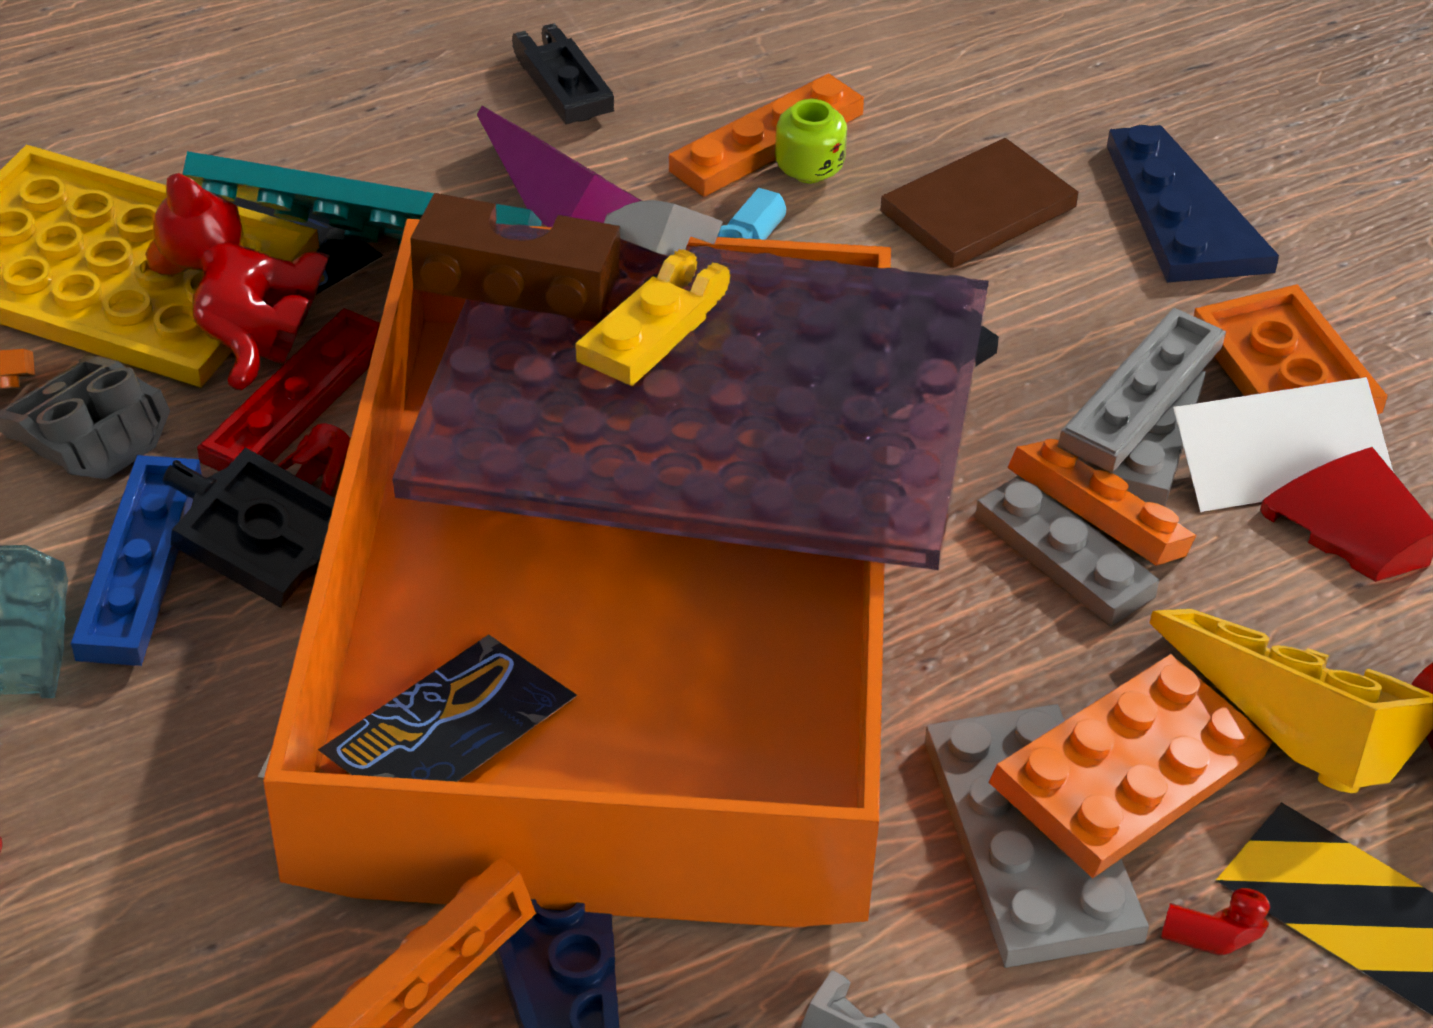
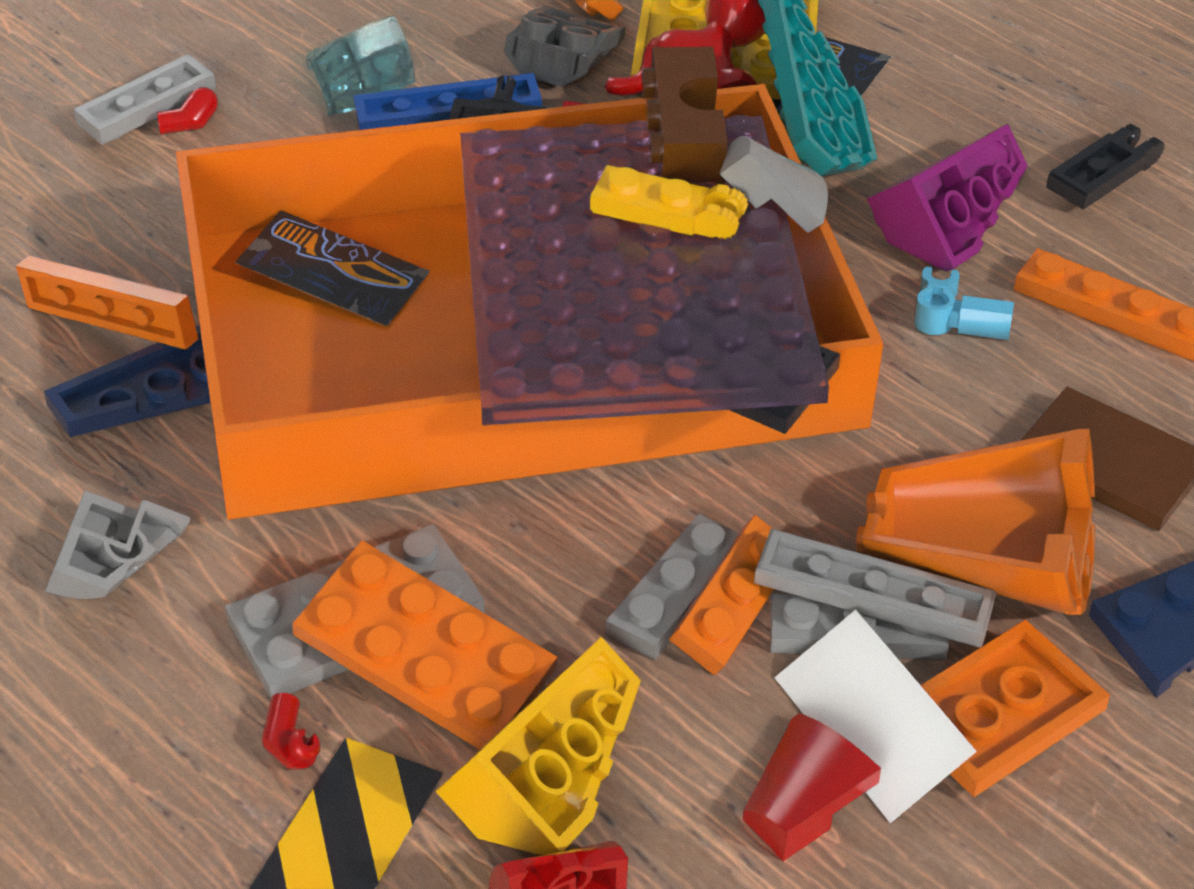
camera: 75 degrees right, 0 degrees up
(811, 141) = (1095, 318): lime head -> none
(1083, 292) = (994, 519): none -> orange cone

